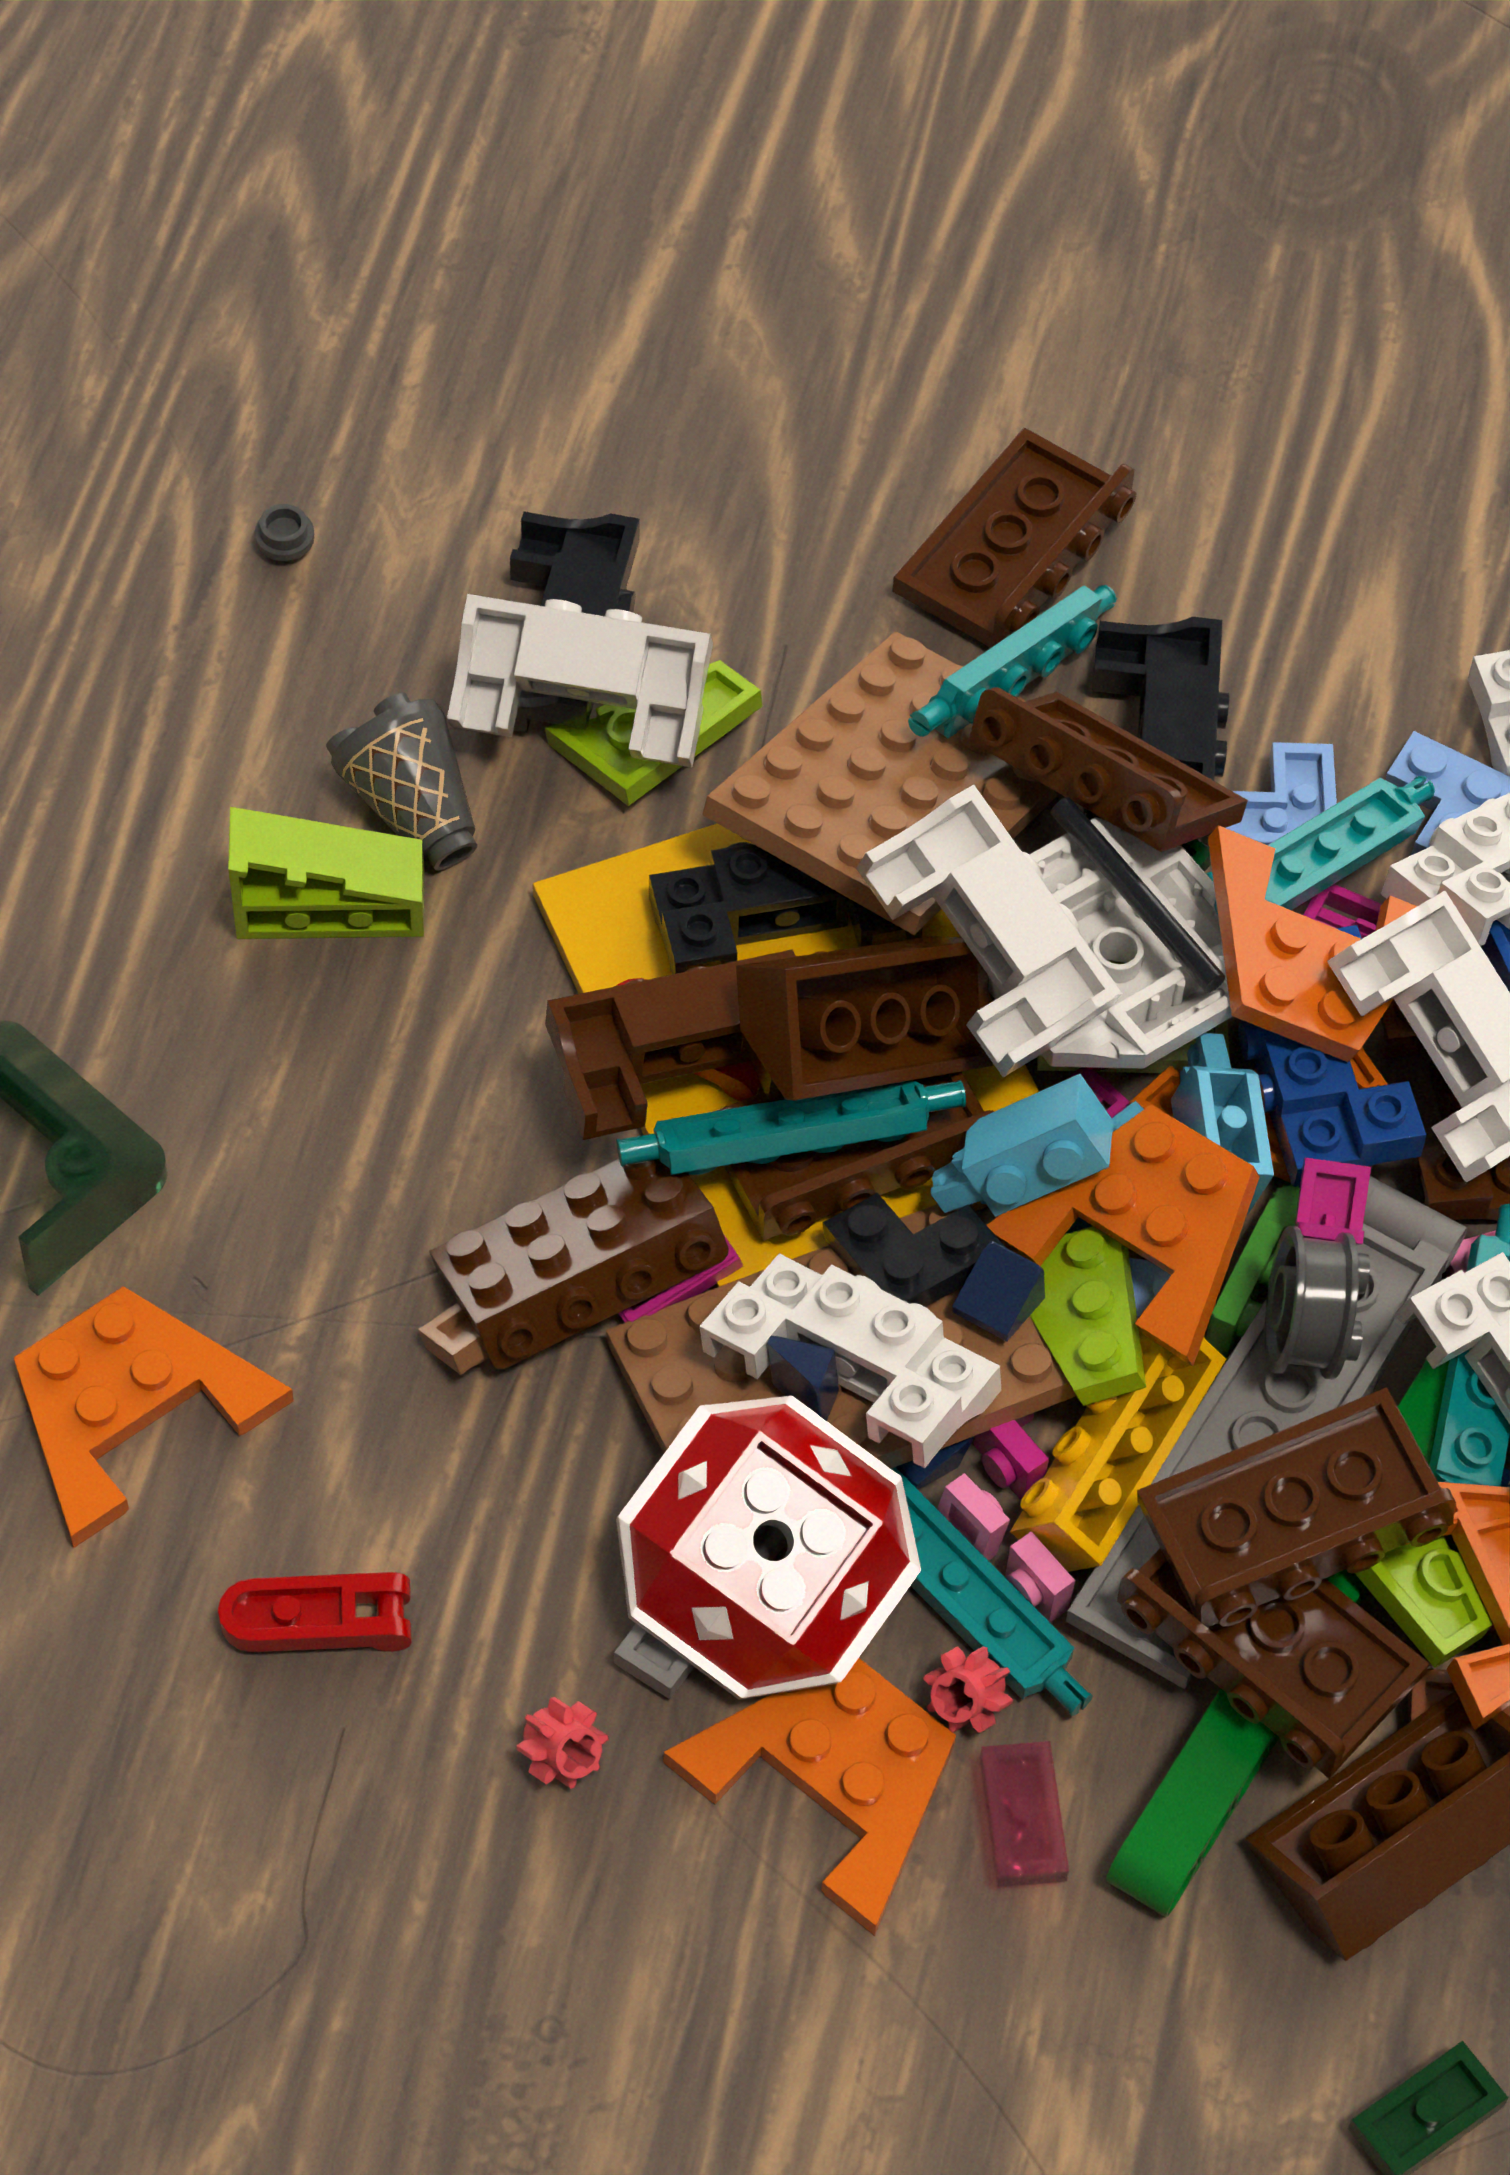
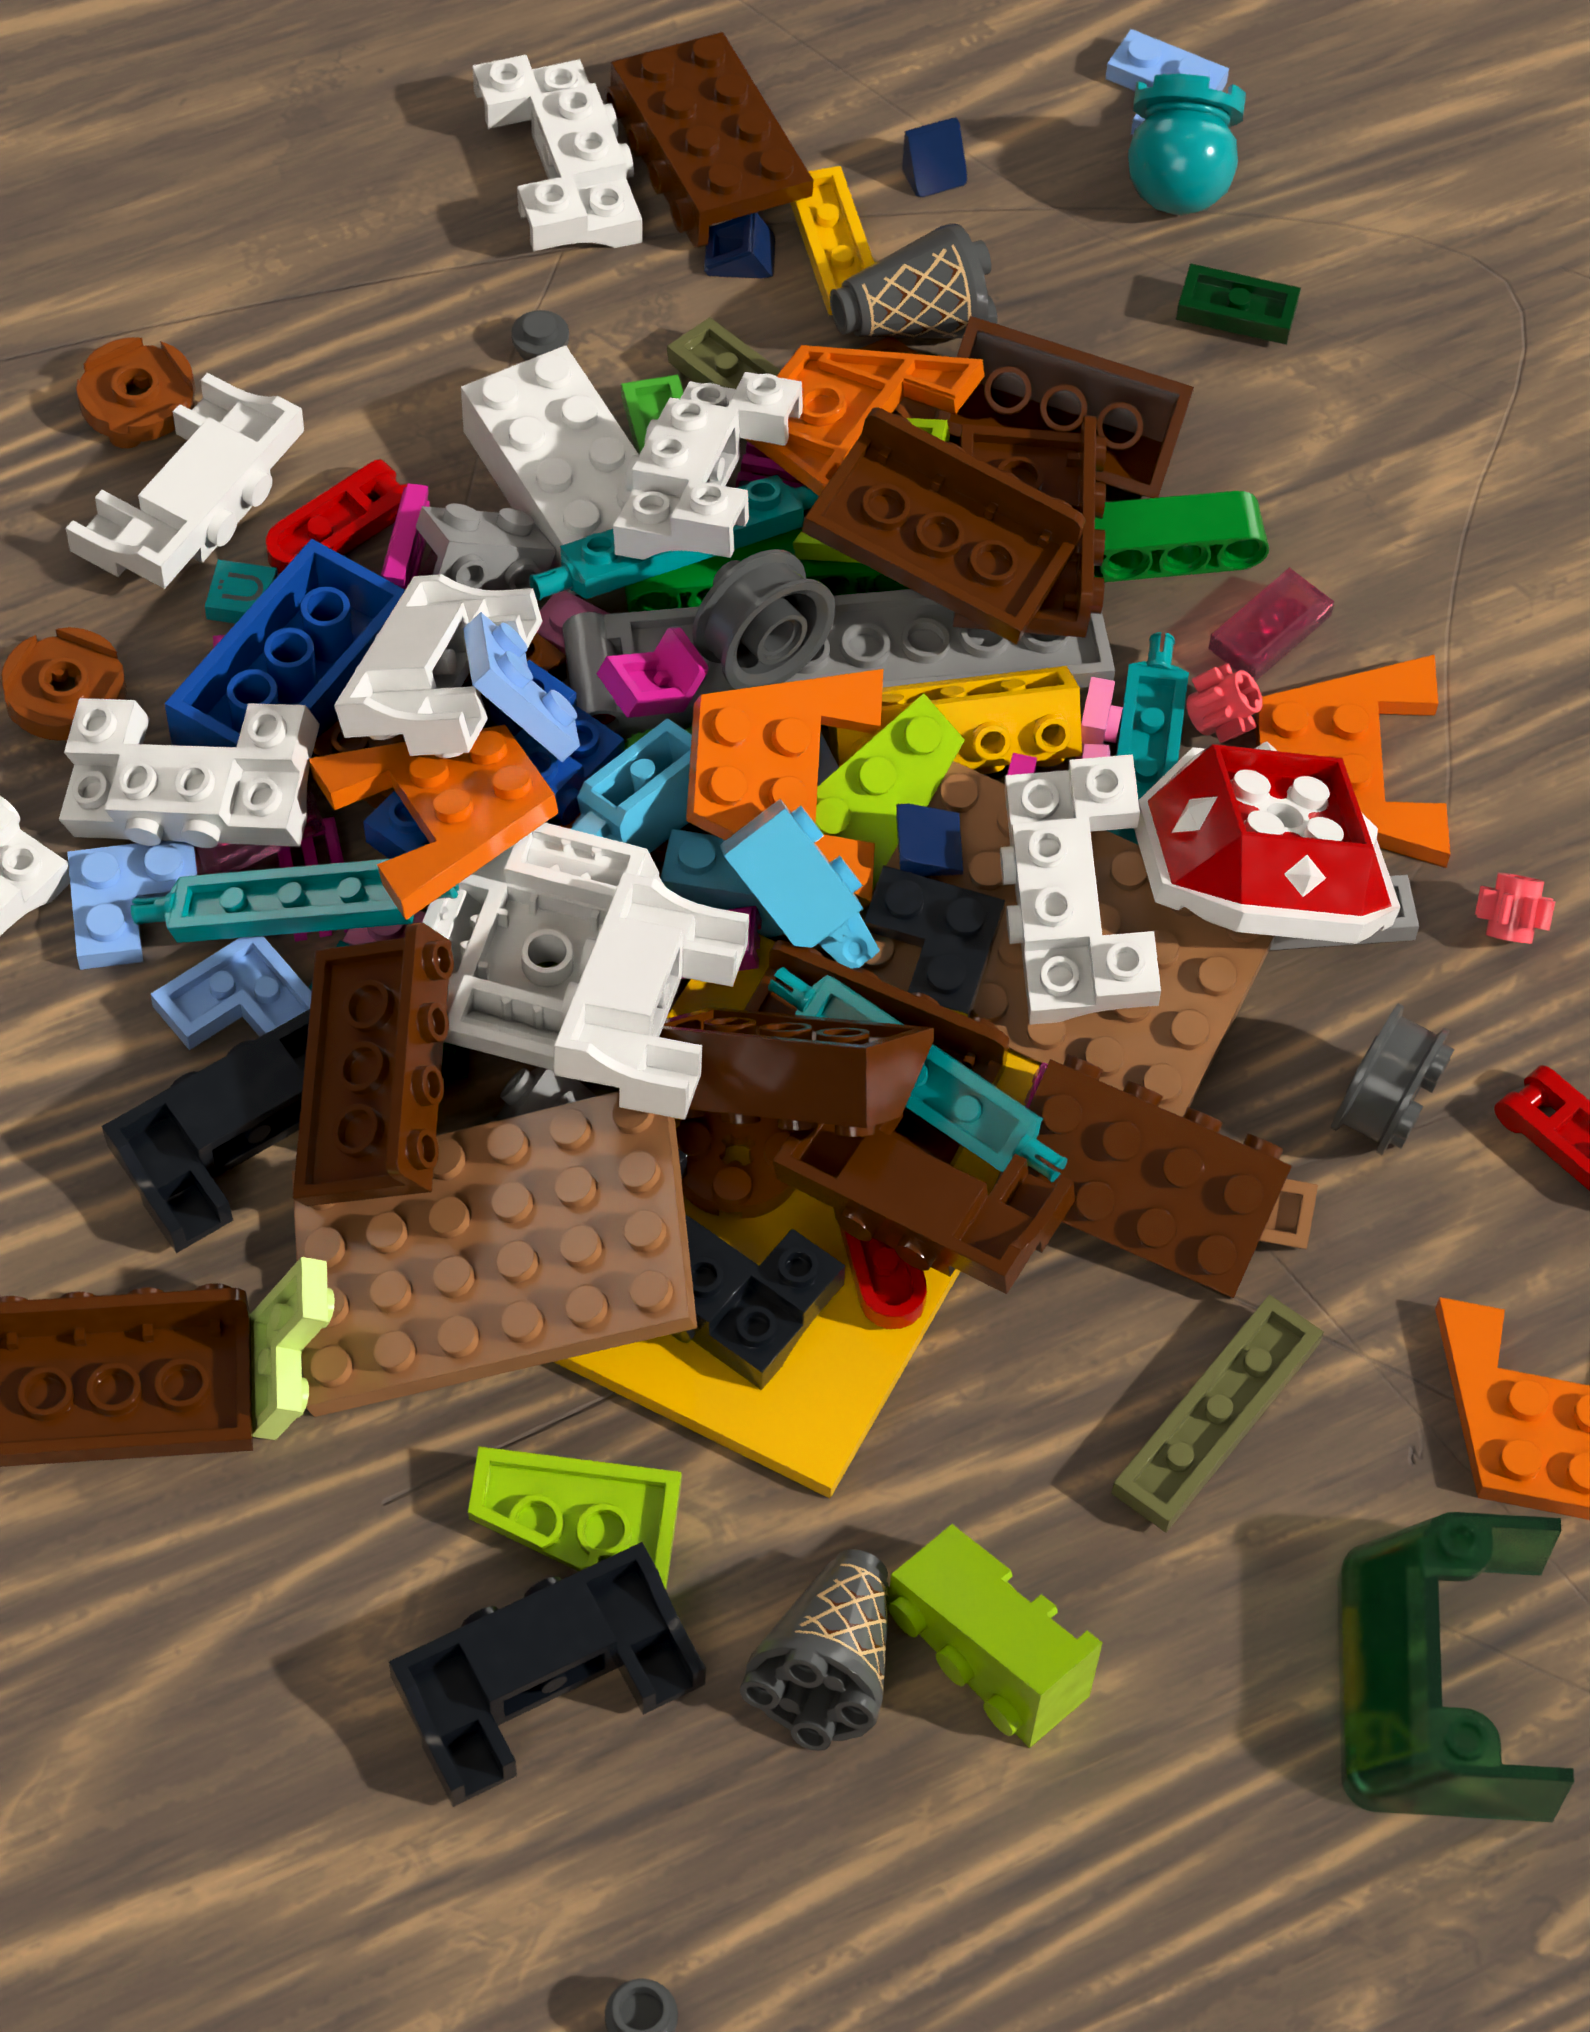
camera: 130 degrees left, 0 degrees up
(351, 1166) = (1217, 1413): none -> olive plate
(483, 1477) = (1389, 1078): none -> dark grey wheel
(586, 659) = (622, 1546): white bracket -> none
(805, 1373) = (1121, 898): dark blue slope -> none
(945, 628) = (279, 1332): none -> yellowish green plate
(1015, 660) = (266, 1253): teal plate -> none
(1138, 895) = (502, 942): black bar -> none
(1383, 1046) = (503, 676): none -> light blue plate

